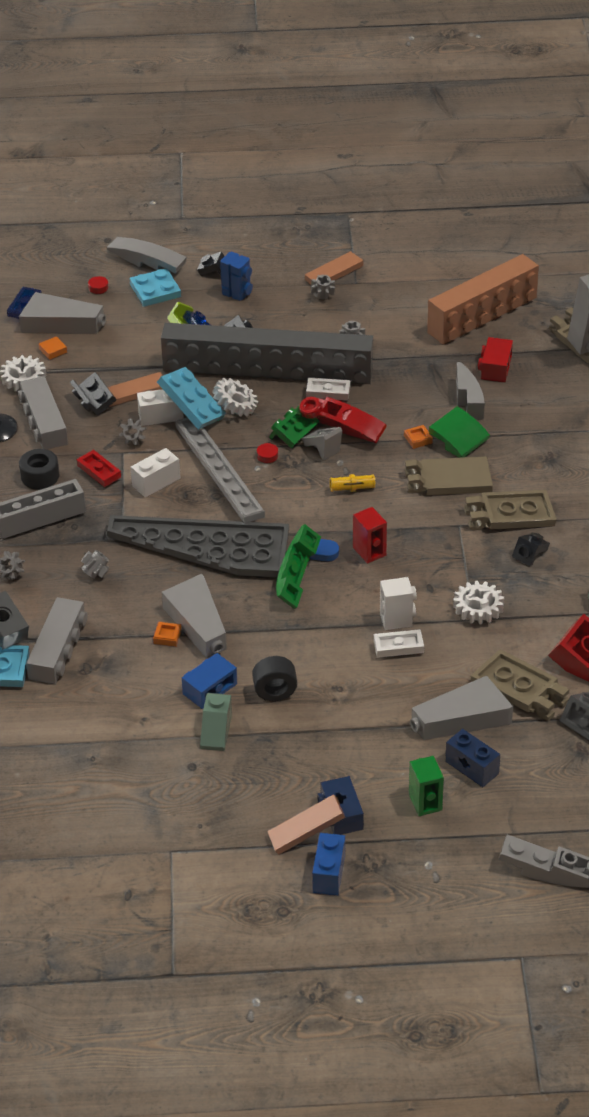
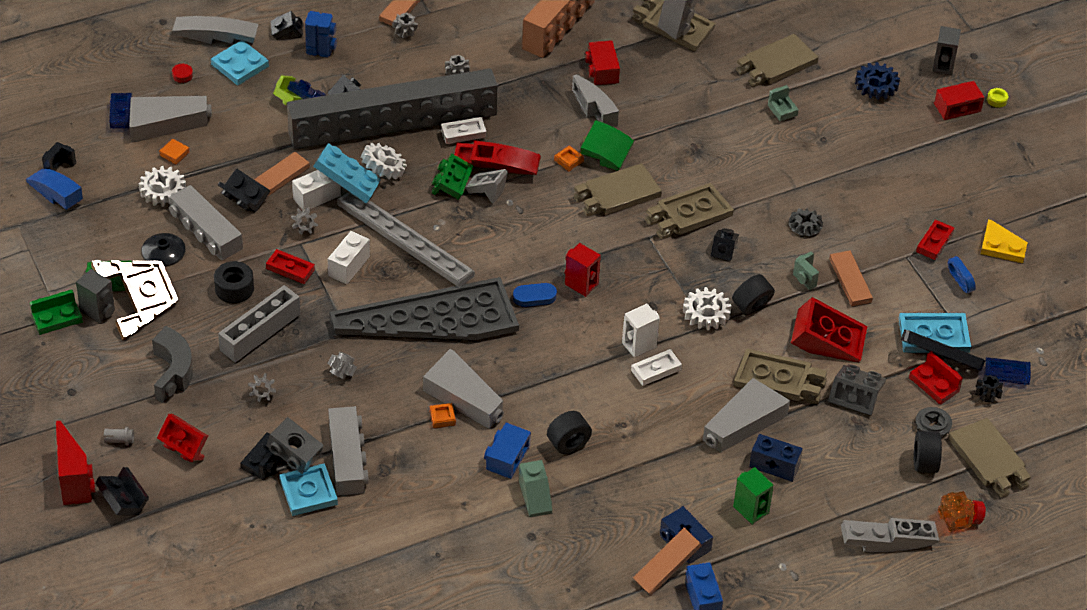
camera: 25 degrees left, 5 degrees up
(267, 453) = (439, 210): red tile -> none
(294, 565) = (525, 313): green slope -> none
(310, 407) = (464, 155): red tile -> none
(337, 484) = (534, 220): yellow pin -> none
(530, 599) = (753, 294): none -> black tyre

